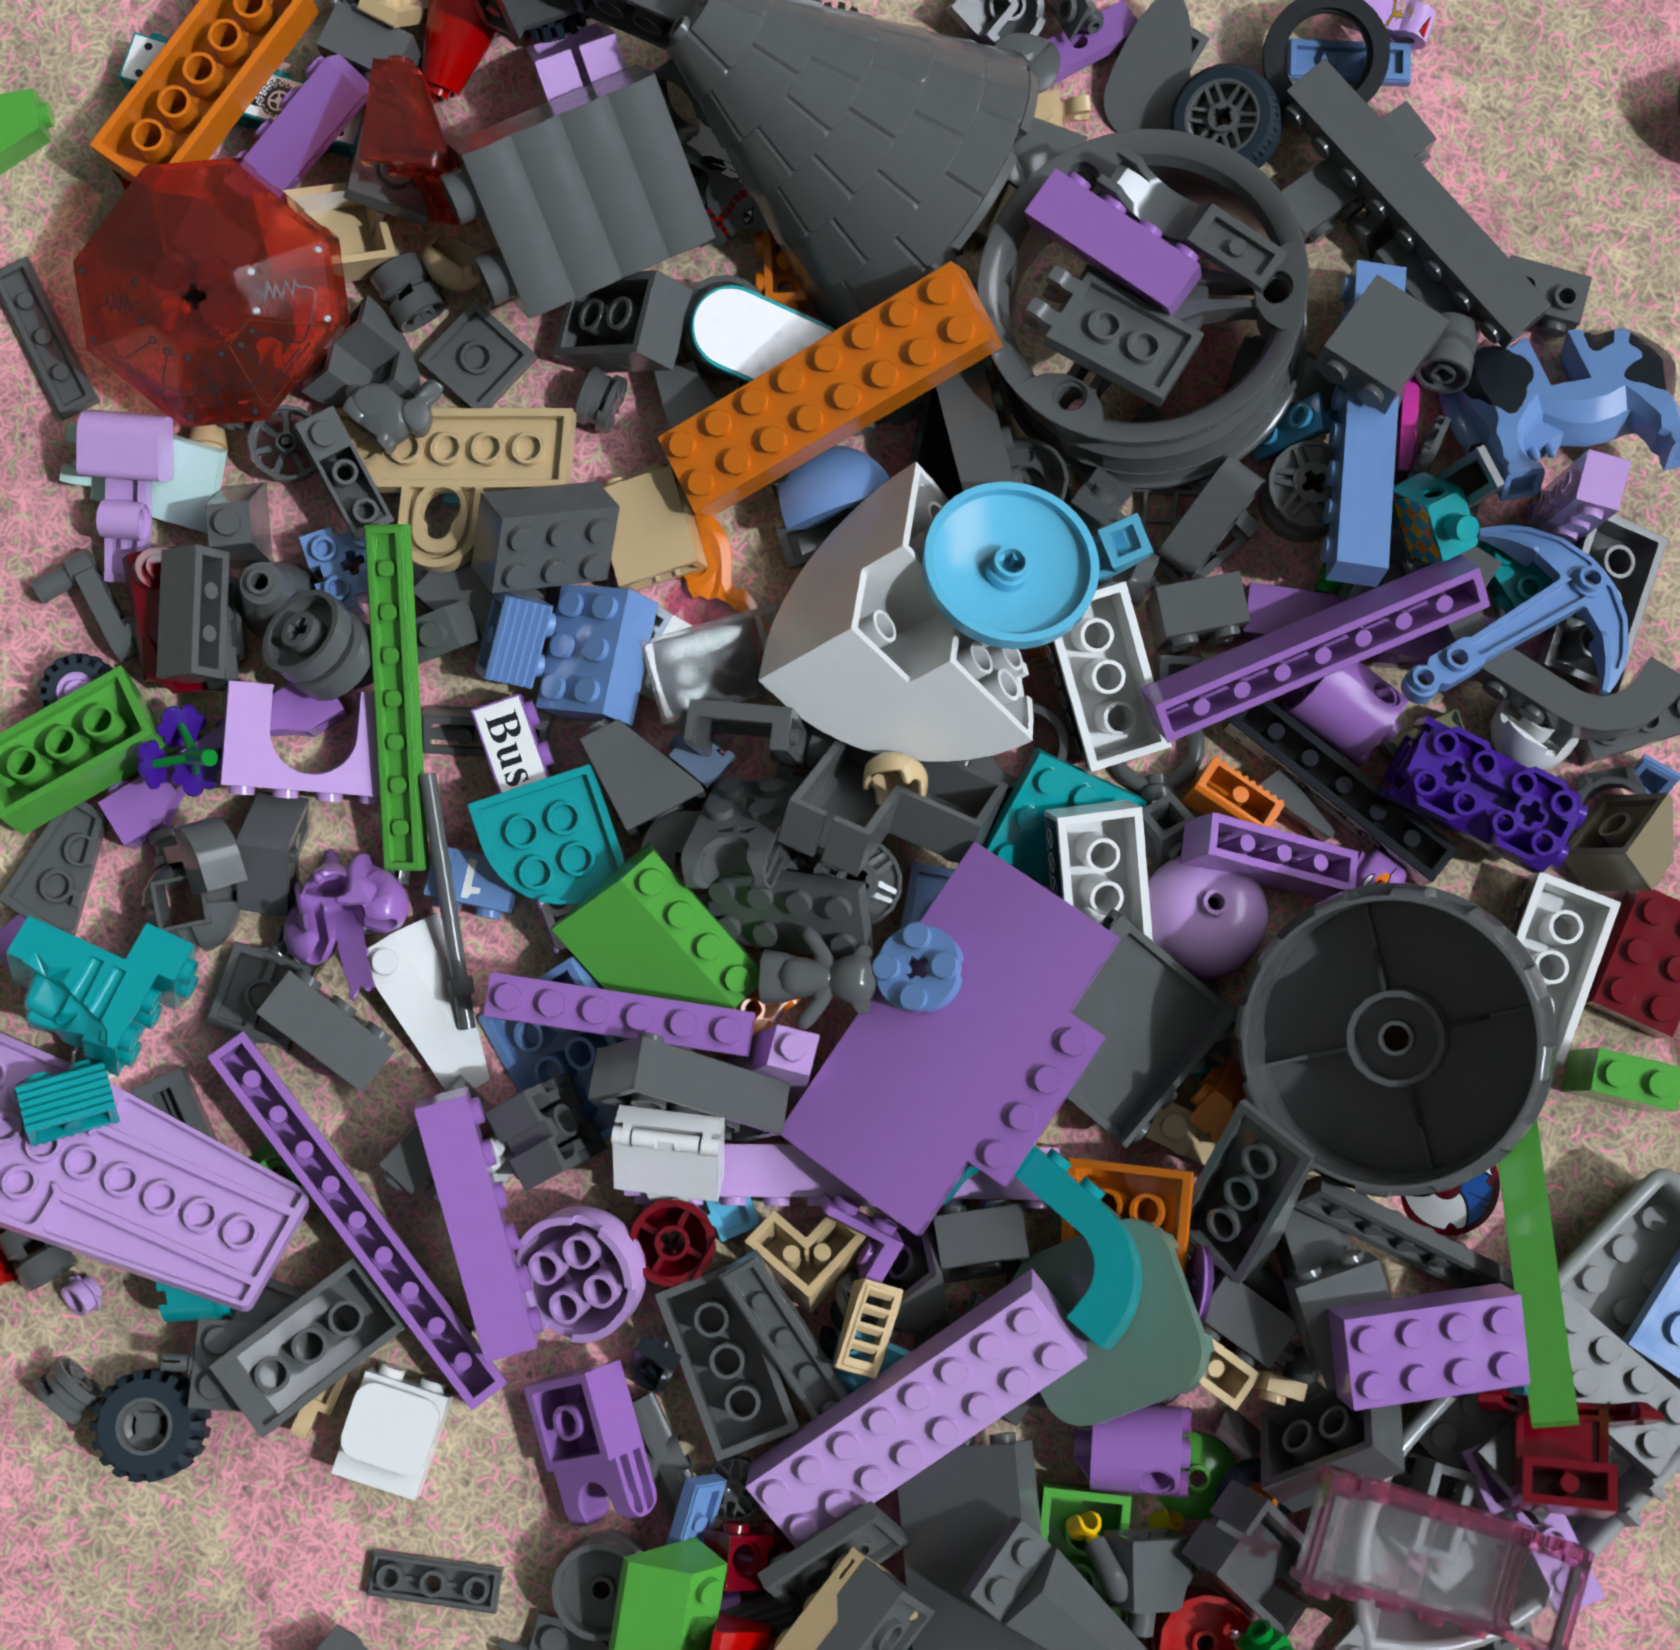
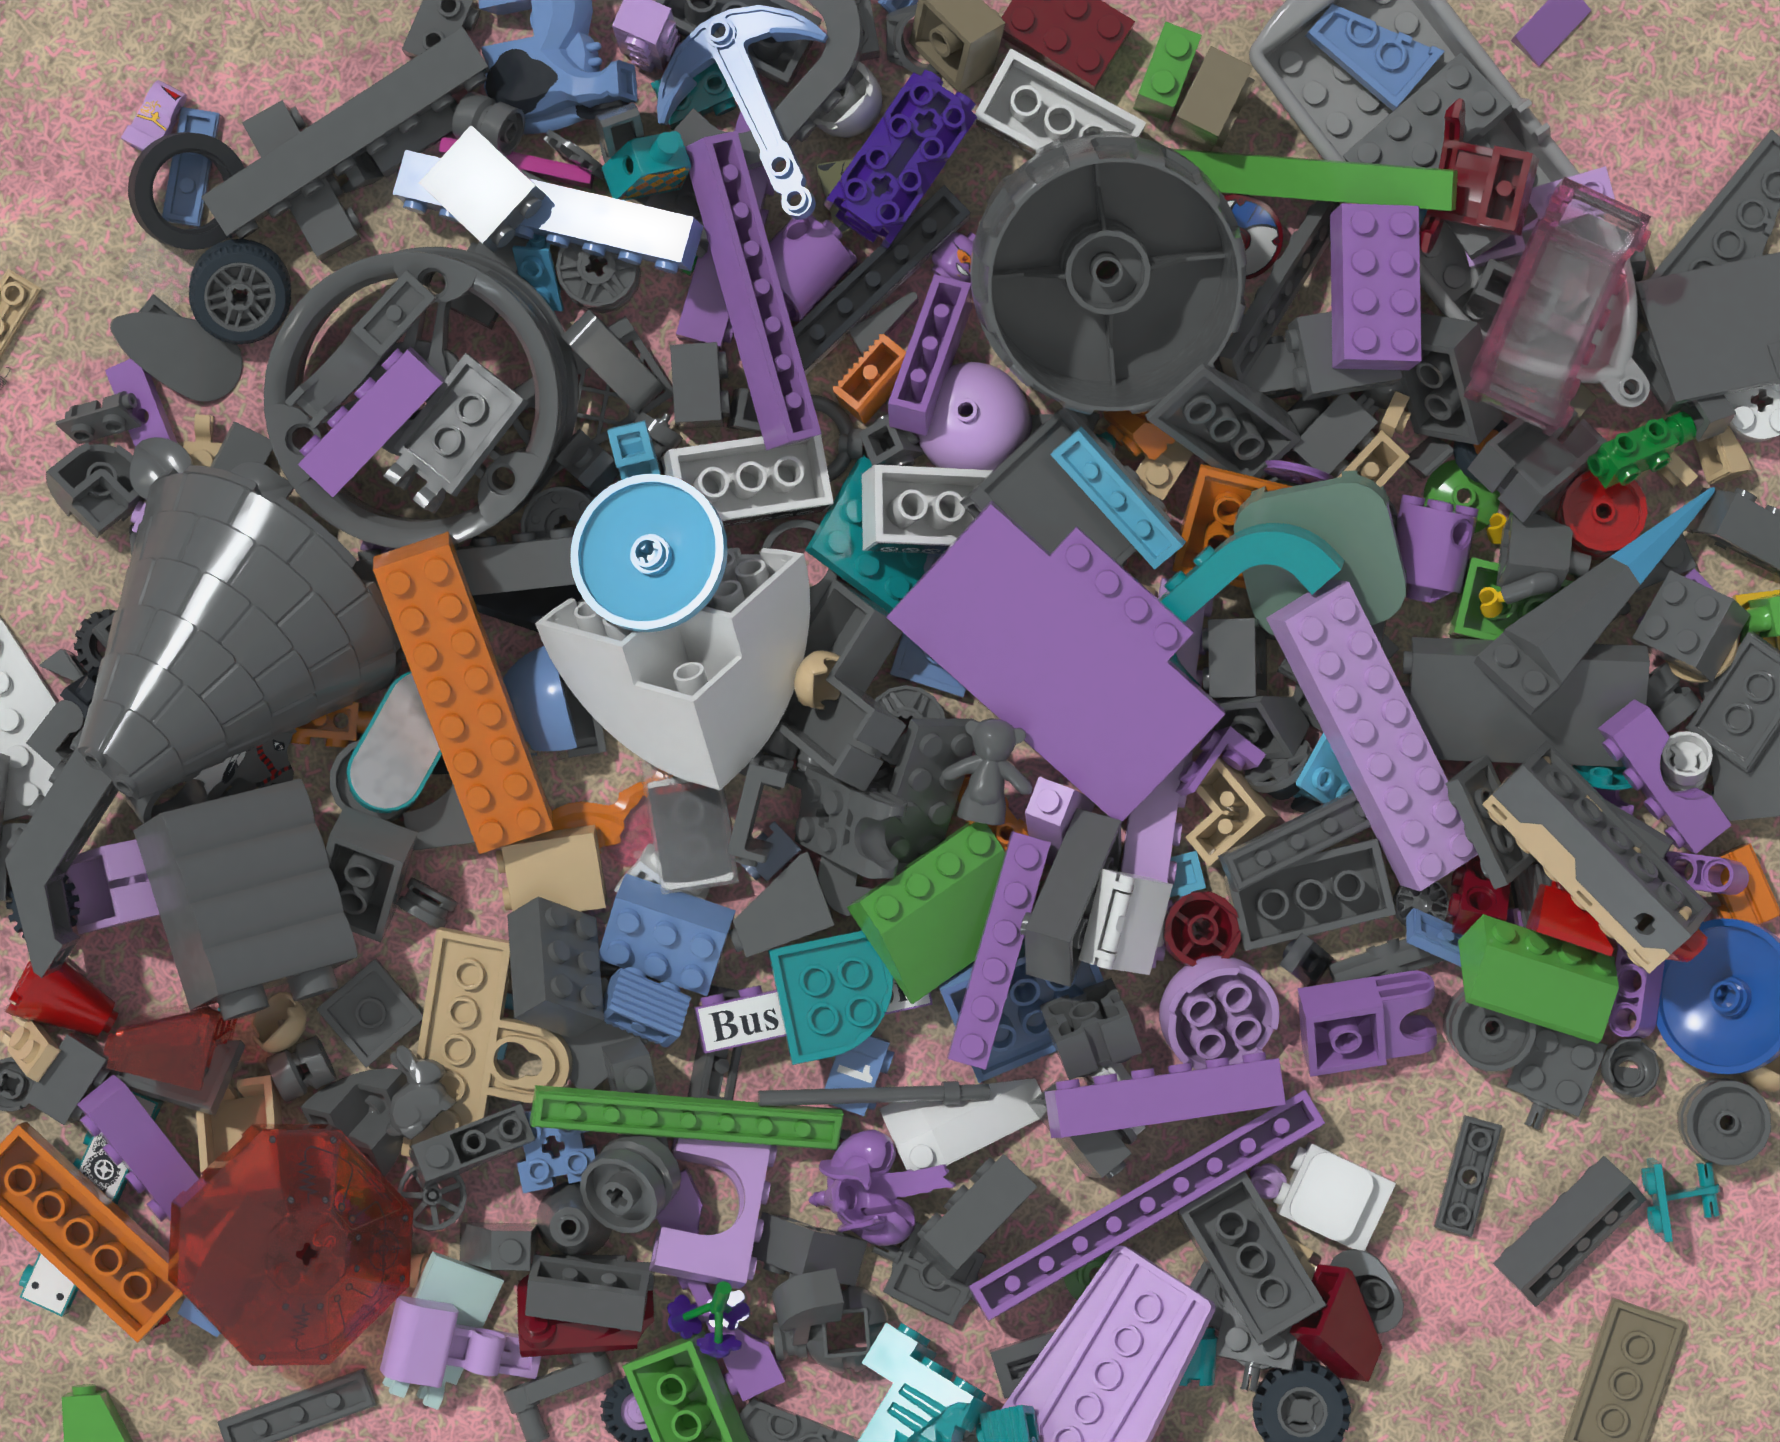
camera: 85 degrees left, 5 degrees up
(241, 1463) = (1343, 1330): none -> dark red slope
(290, 1483) = (1377, 1285): none -> dark grey piece
(403, 1352) = (1267, 1180): none -> lavender plate
(856, 1307) = (1303, 755): tan slope -> none
(895, 965) = (996, 659): medium blue plate -> none
(1142, 1084) = (1118, 498): none -> medium azure plate
(1602, 1134) = (1215, 92): none -> dark tan brick

